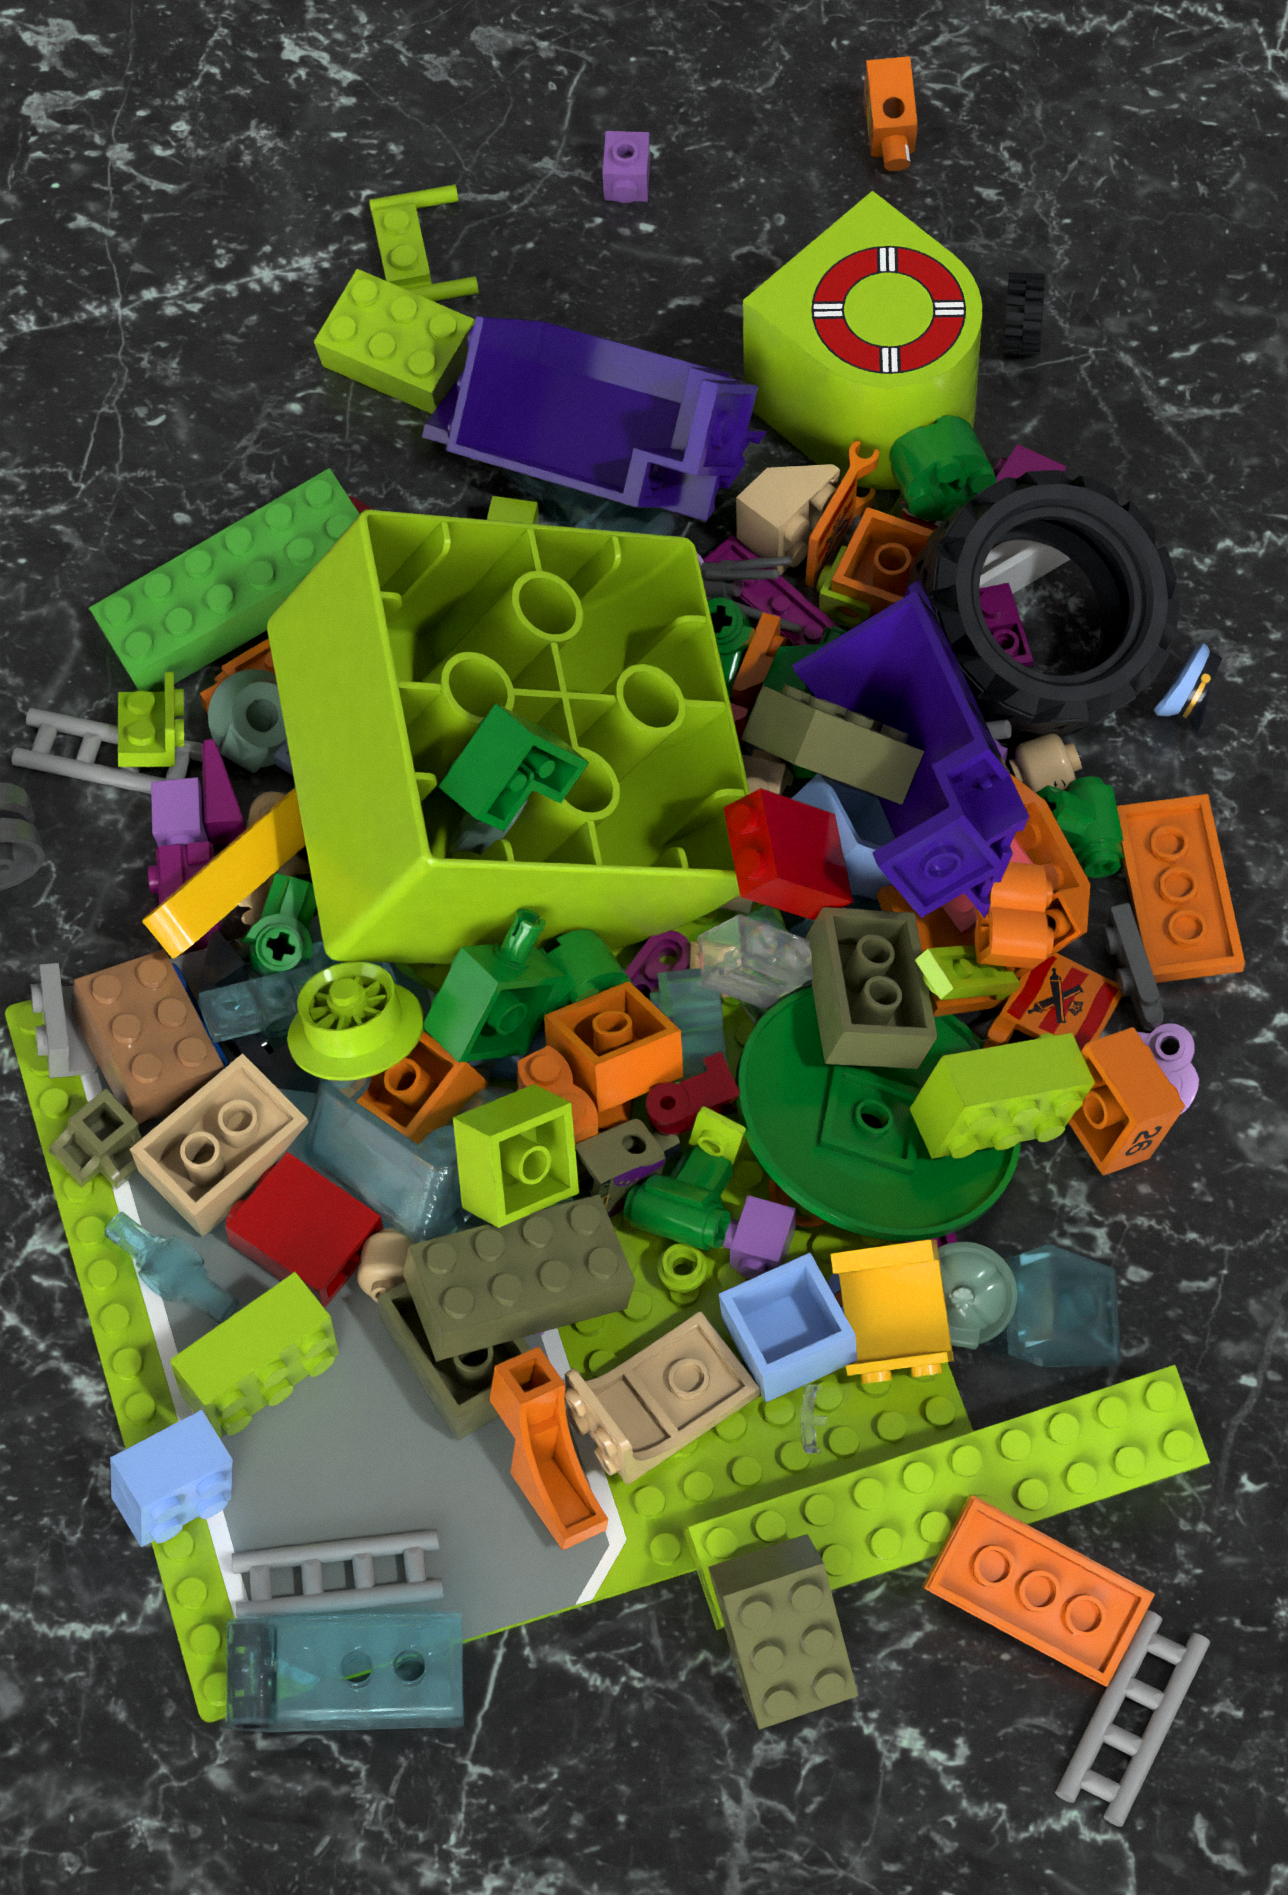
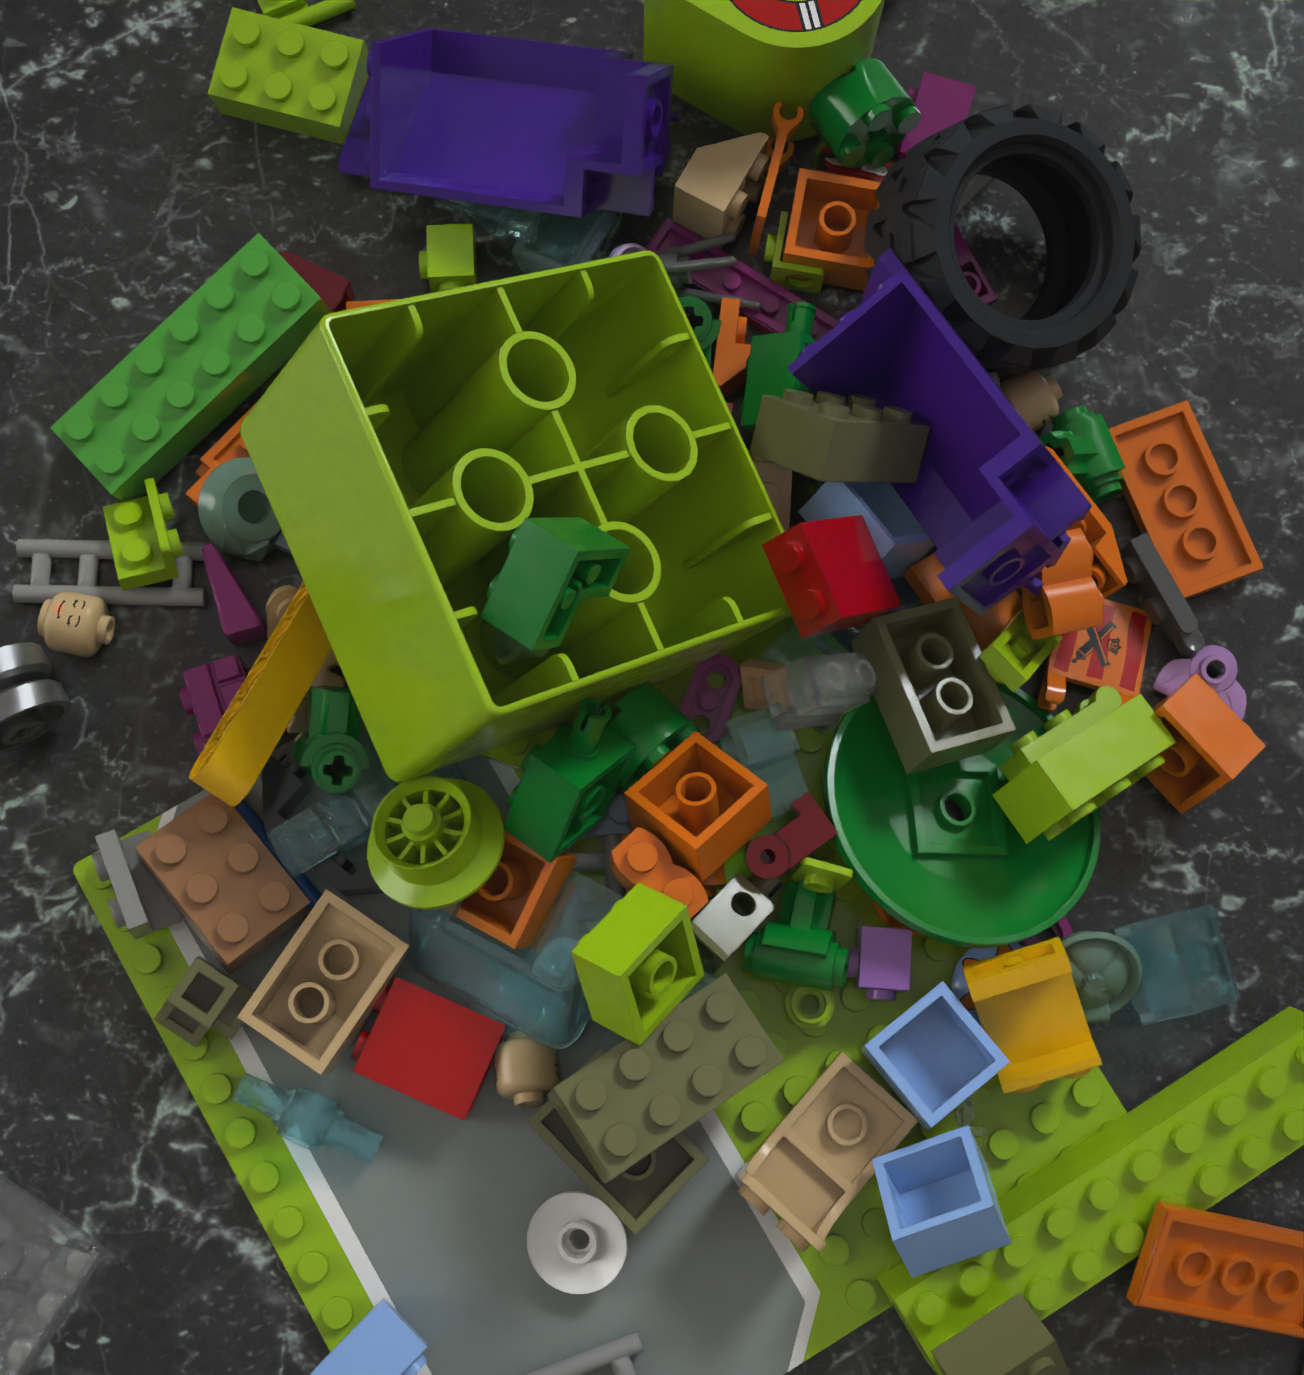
camera: 20 degrees left, 15 degrees up
(66, 790) = (75, 623): none -> tan head
(178, 812) = (195, 630): medium lavender brick -> none
(256, 1356) = (417, 1210): lime brick -> none
(377, 1424) = (563, 1260): none -> white dish
(544, 1461) = (730, 1245): orange arch -> none
(755, 1448) = (940, 1201): none -> light blue piece
(1191, 687) = (1153, 293): piece -> none

